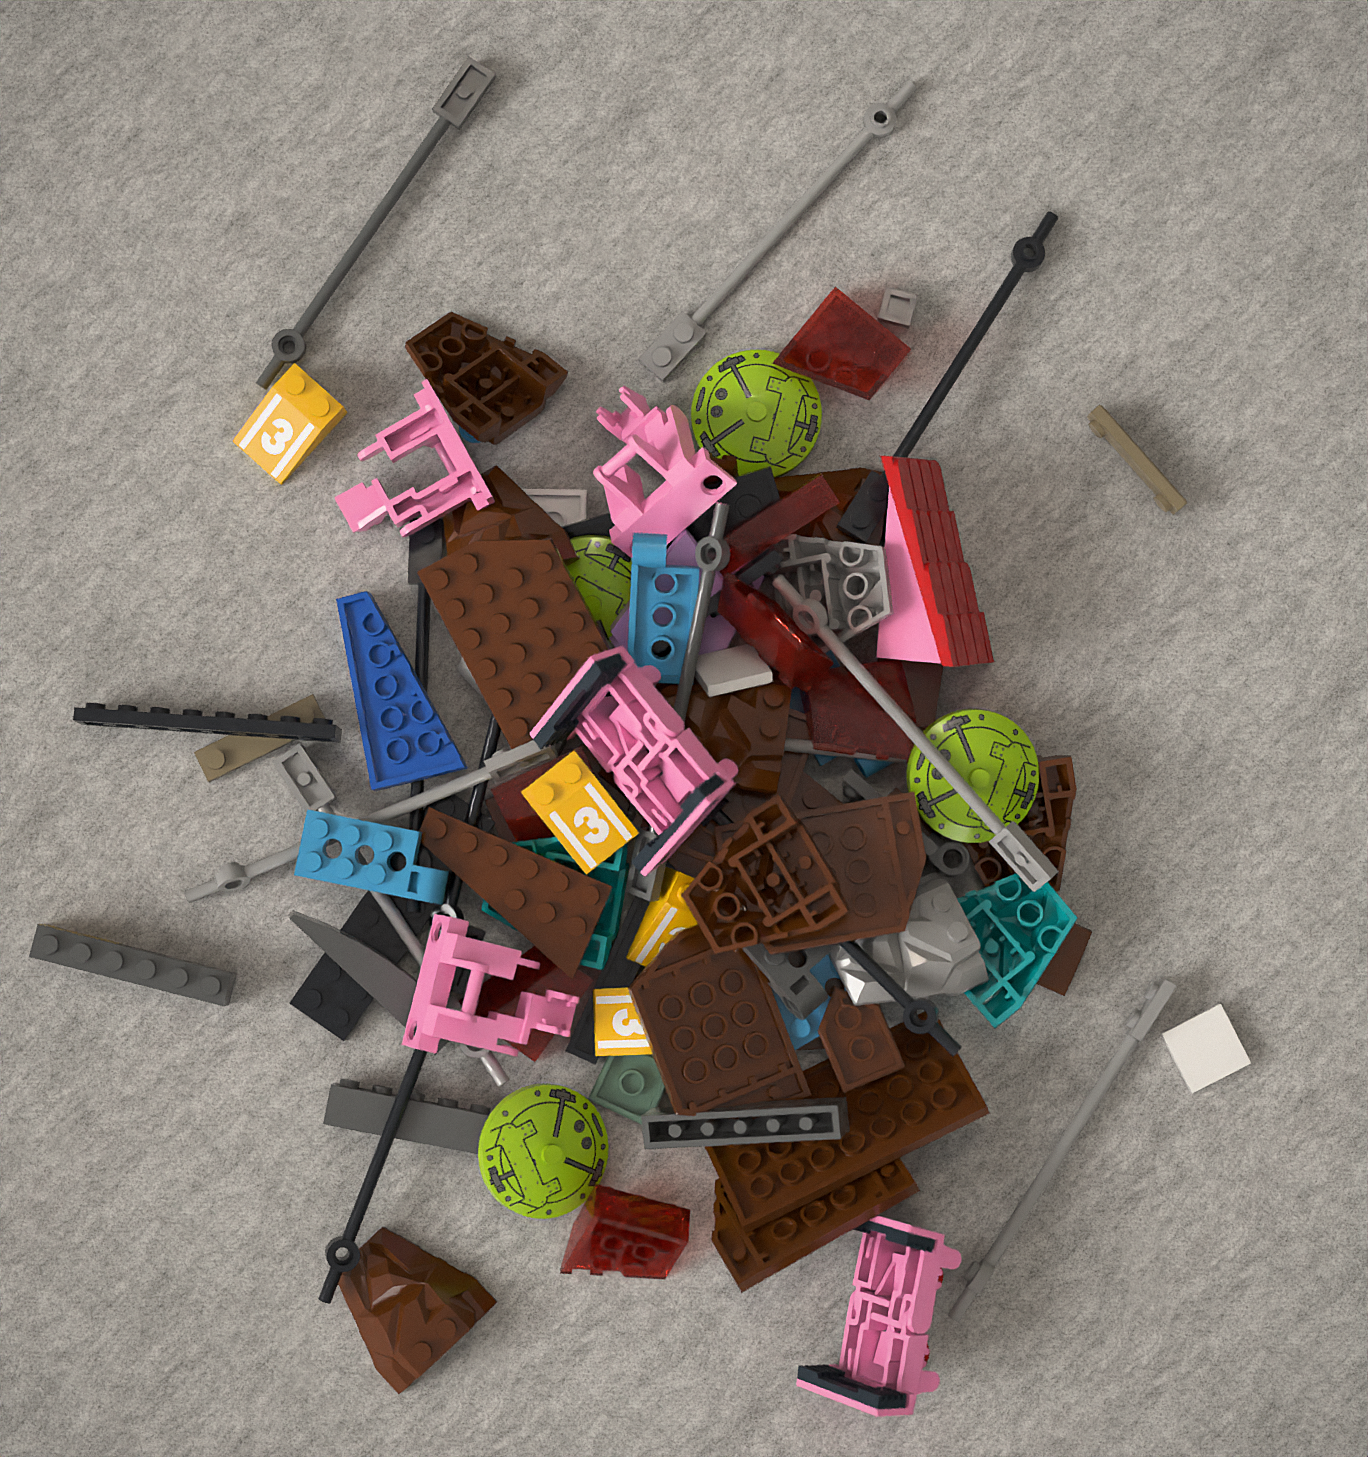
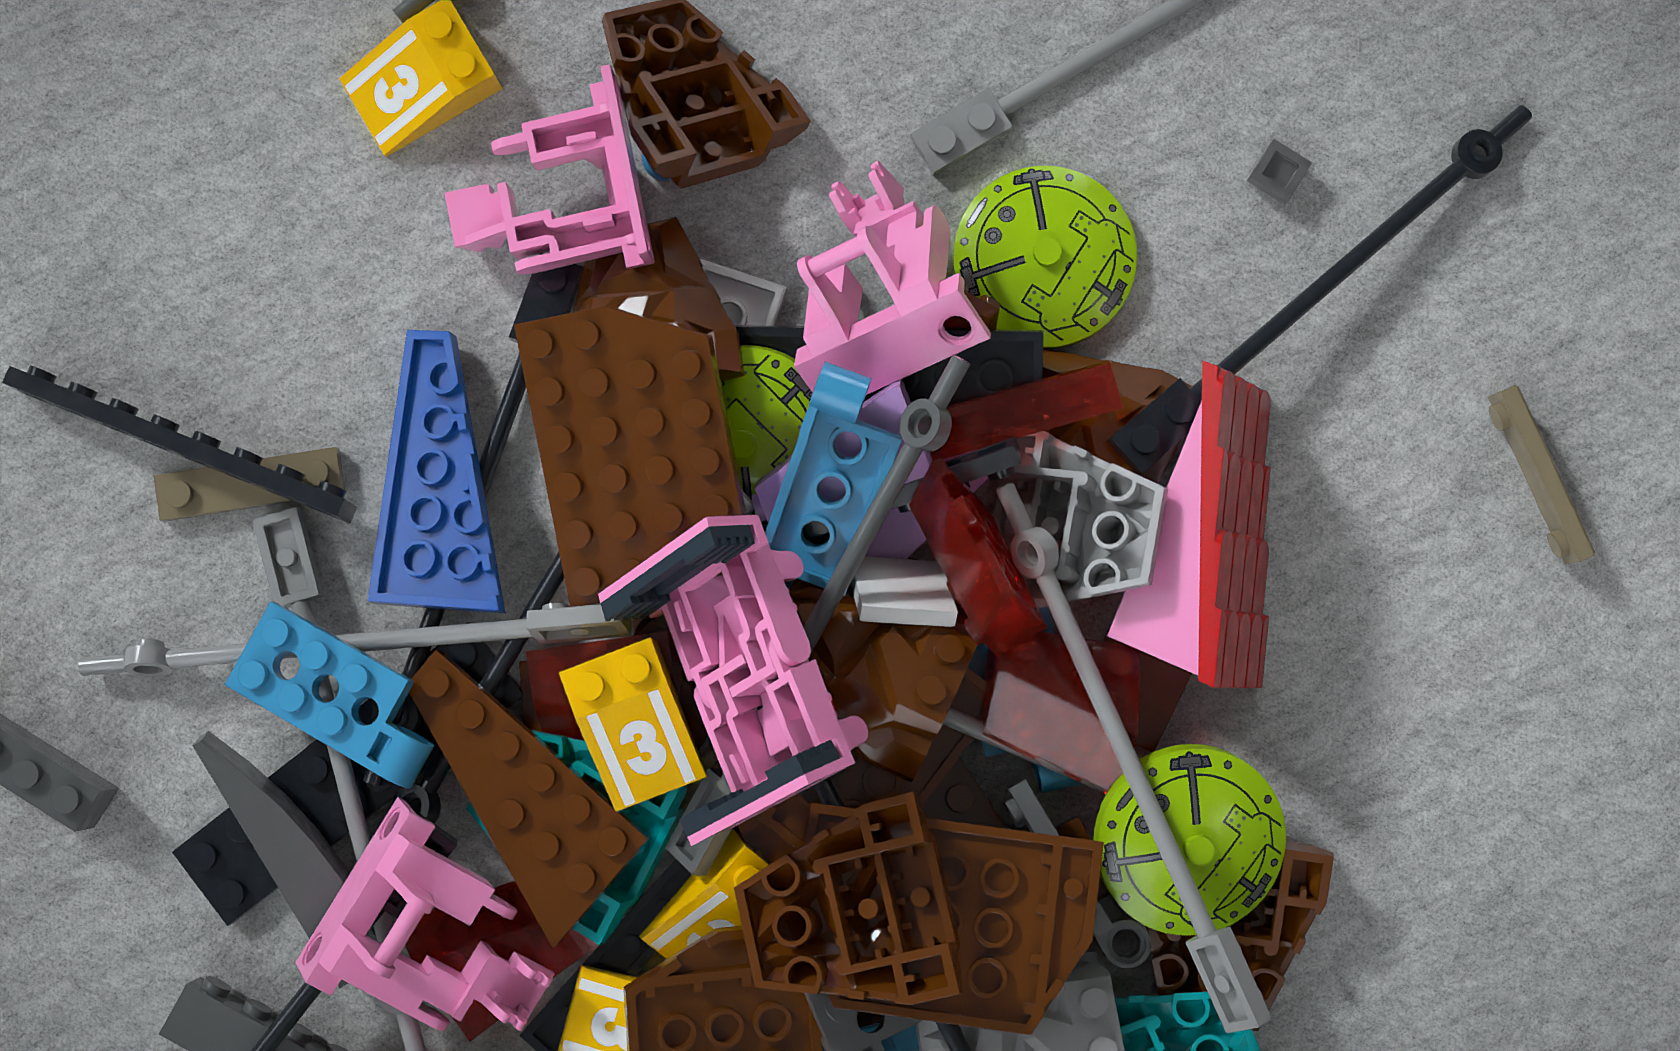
camera: 25 degrees right, 0 degrees up
(844, 348) = (1193, 203): clear red wedge -> none

